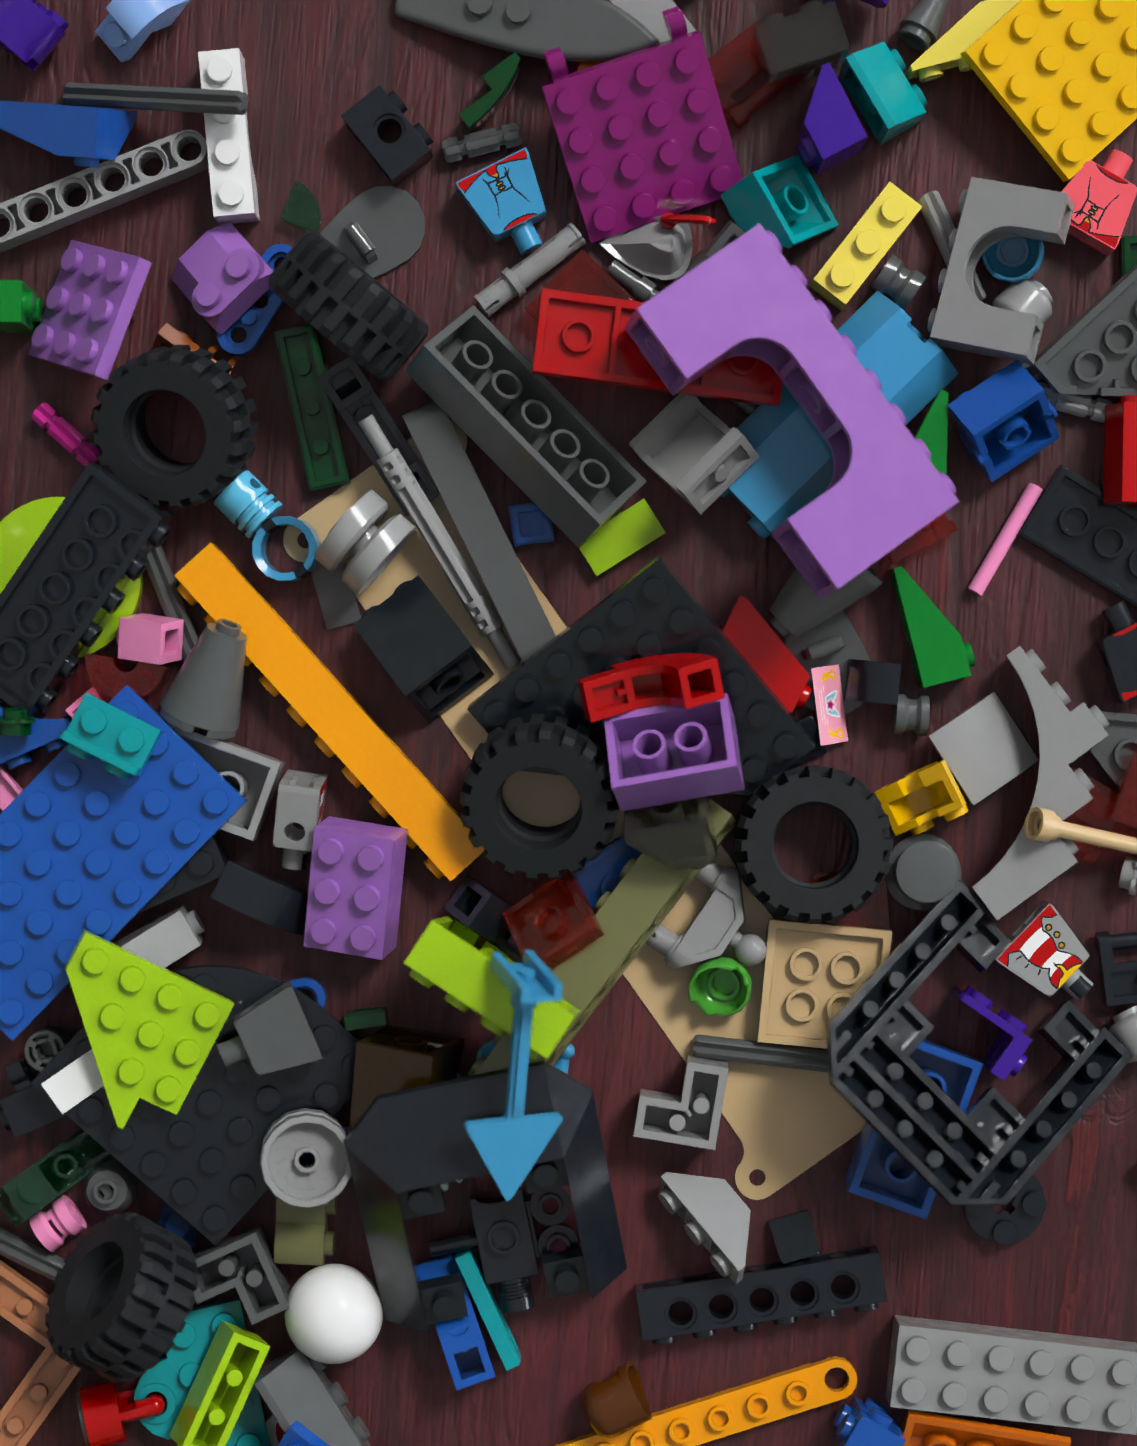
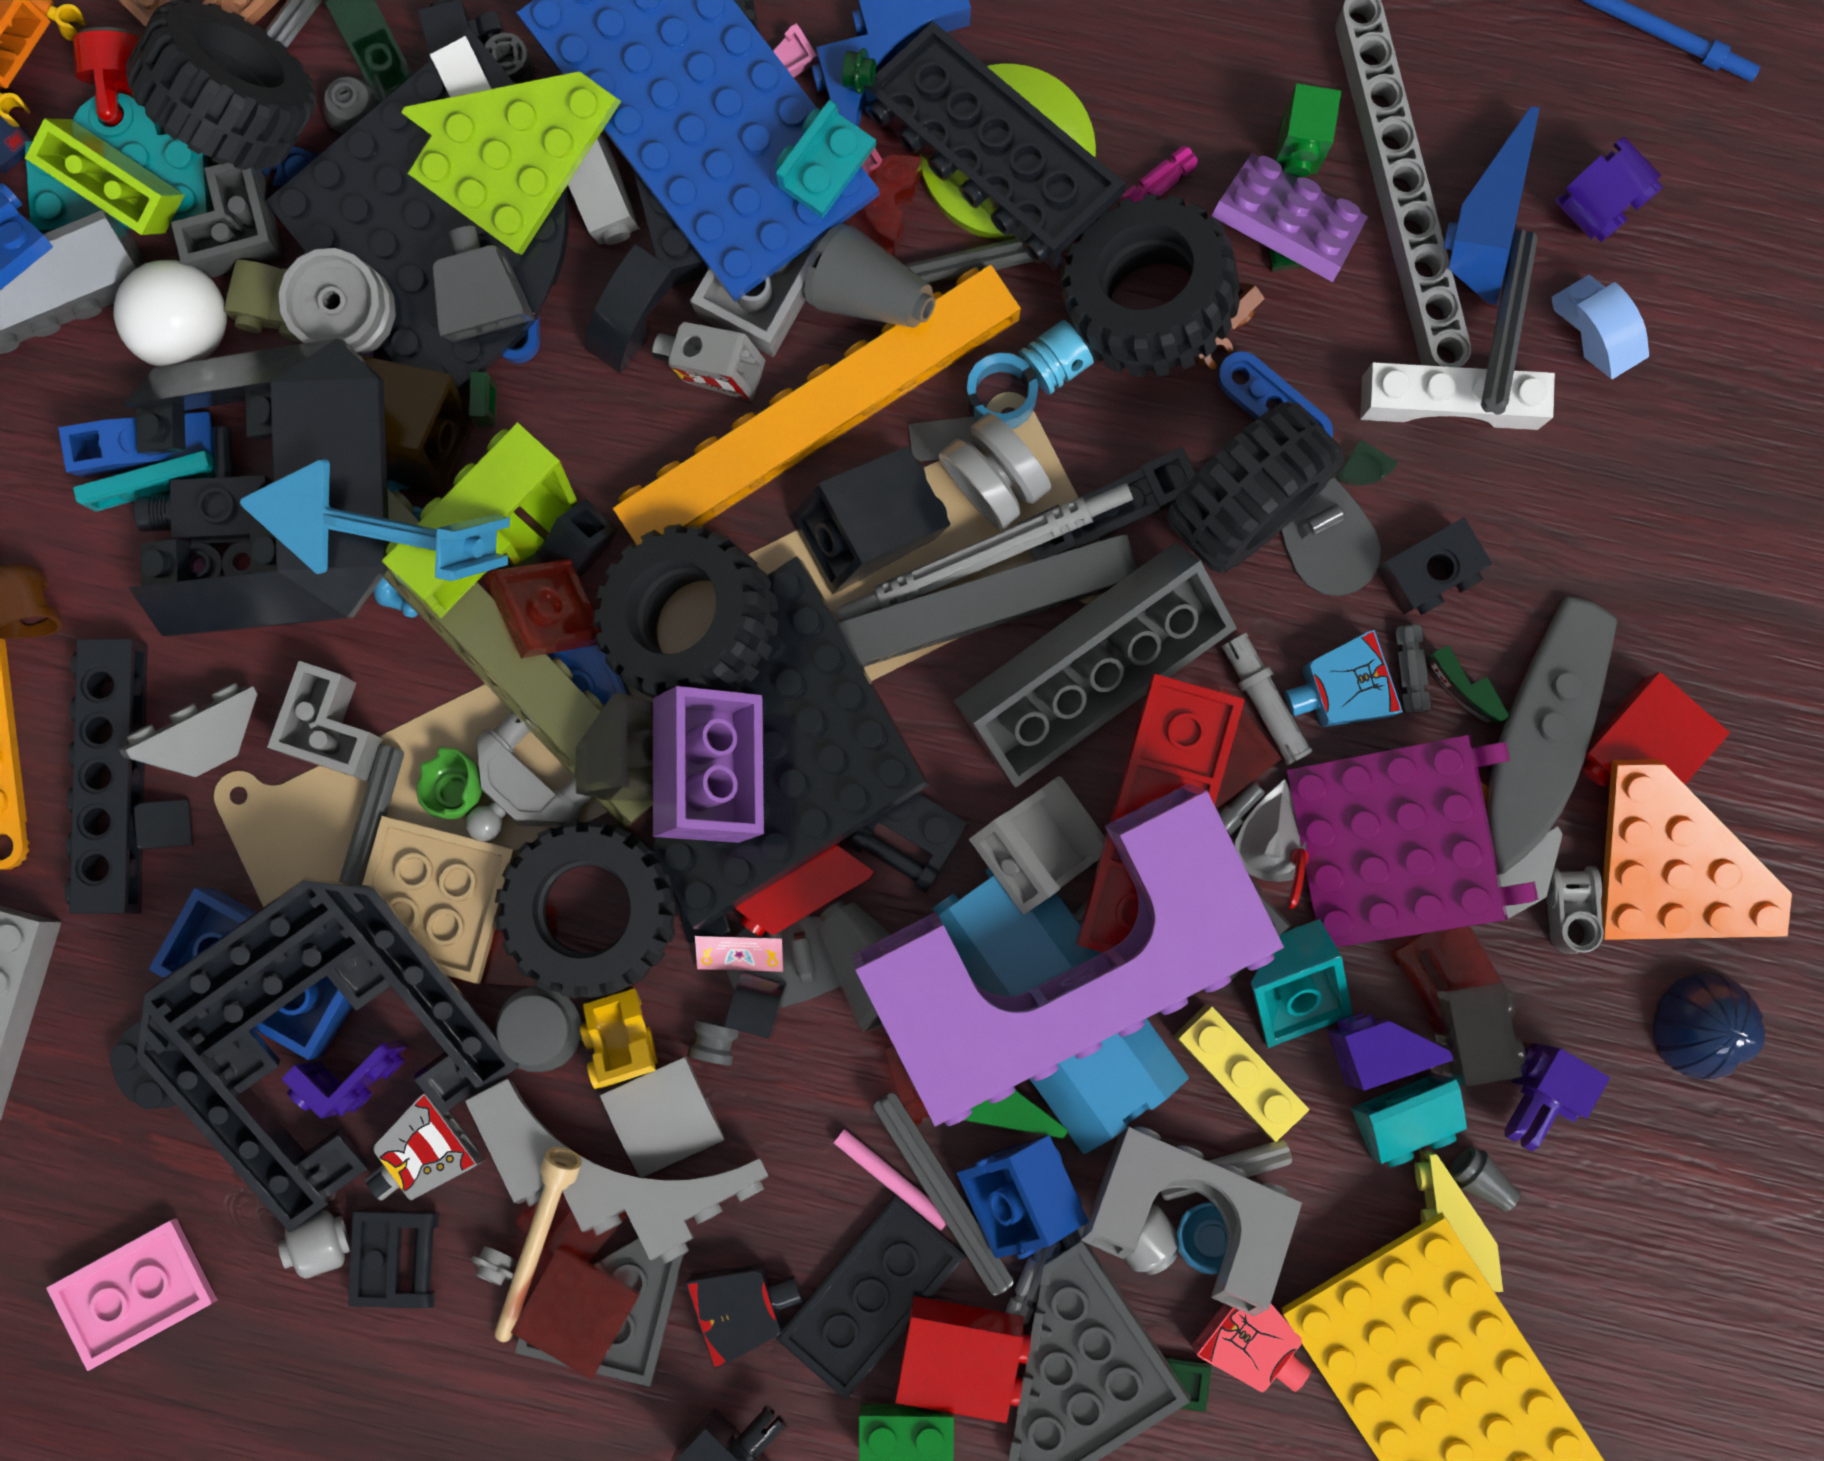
camera: 105 degrees right, 5 degrees down
(58, 1223) = (324, 50): bright pink wheel -> none
(150, 638) = (927, 231): bright pink brick -> none
(222, 276) = (1306, 364): medium lavender slope -> none
(312, 408) = (1139, 442): dark green tile -> none
(355, 887) = (622, 404): medium lavender brick -> none
(530, 525) = (986, 655): blue tile -> none
(622, 537) = (959, 754): lime tile -> none
(651, 681) = (791, 752): red arch -> none
(691, 556) = (923, 825): none -> black plate
(898, 282) = (1195, 1103): dark grey wheel -> none
(931, 639) = (788, 1080): green slope -> none
(1010, 492) = (942, 1193): none -> dark grey axle

